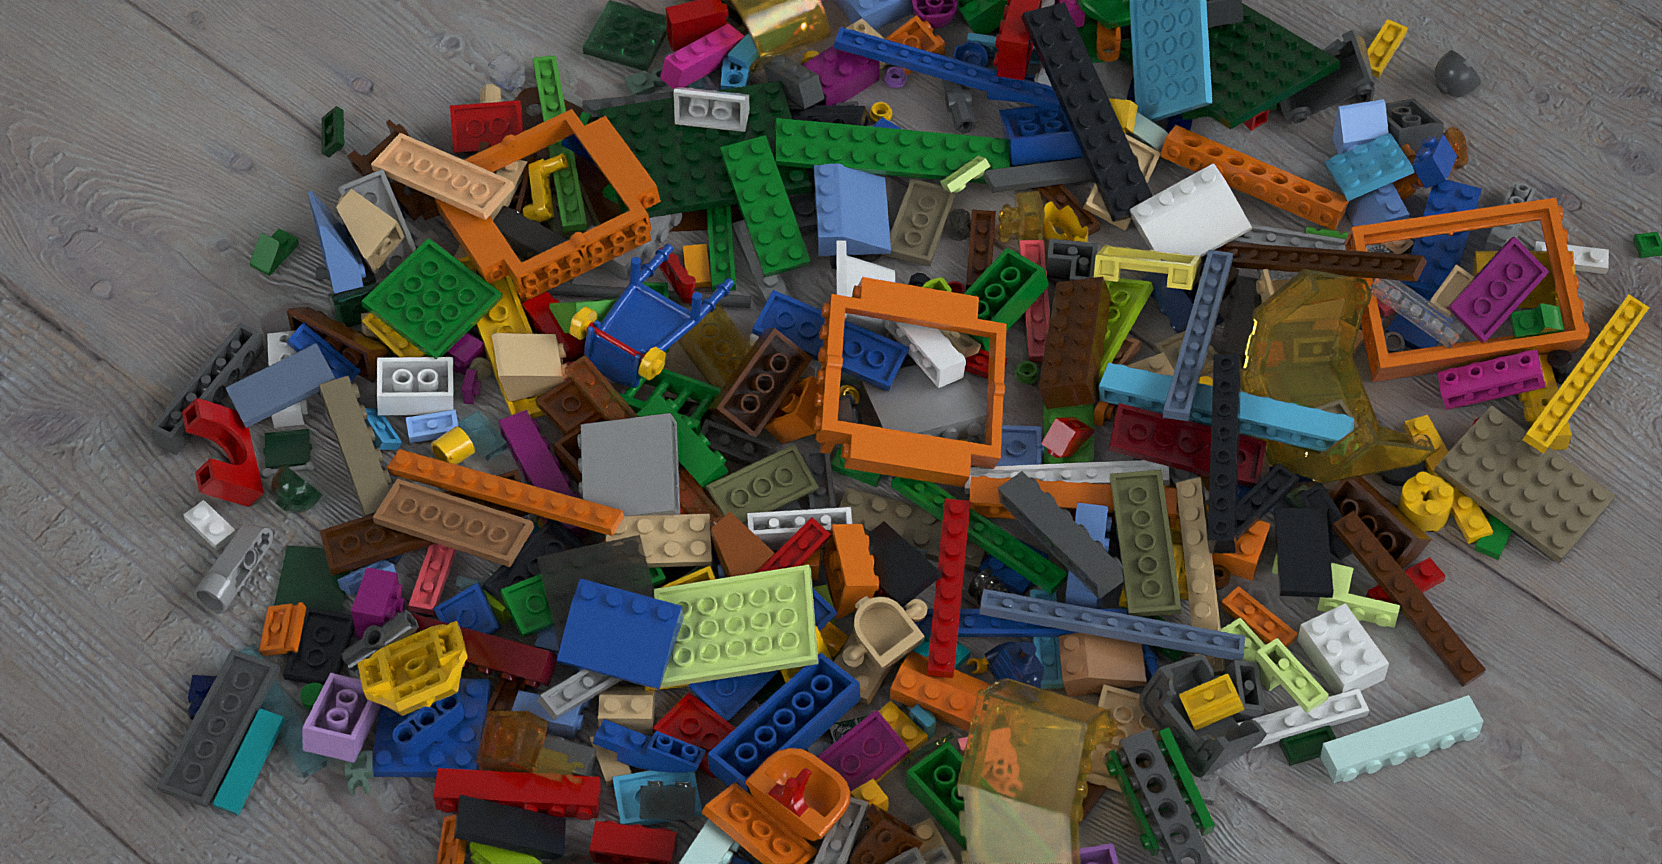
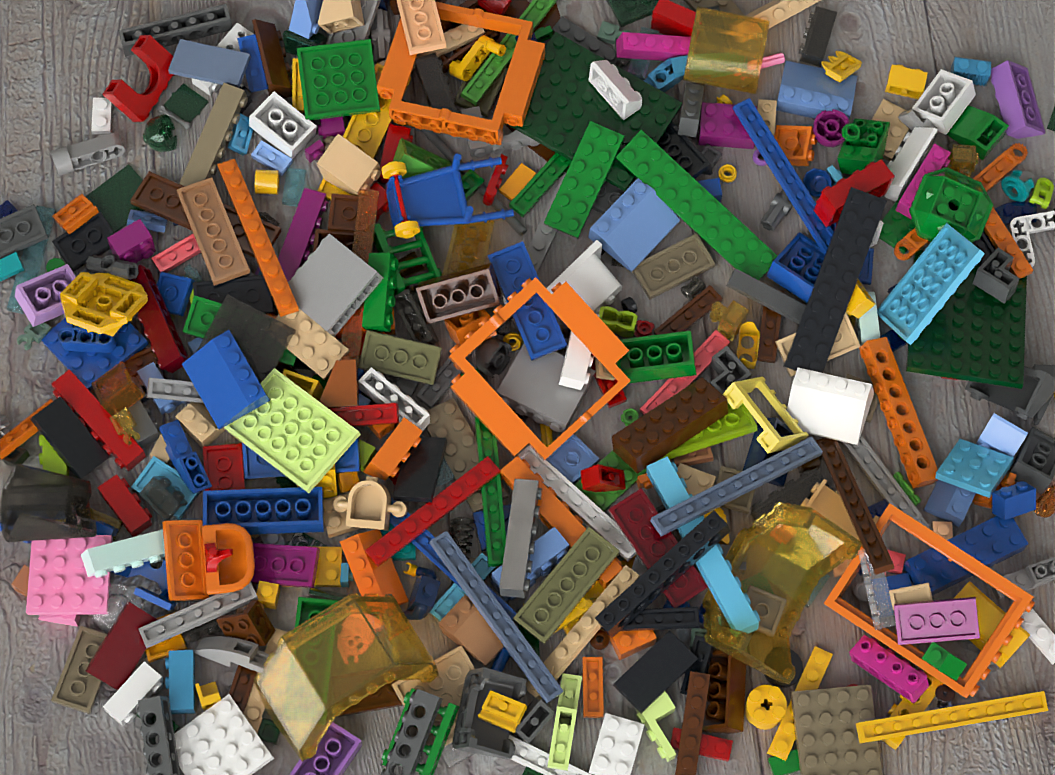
camera: 40 degrees right, 15 degrees up
(971, 170) = (723, 259): yellowish green plate -> none

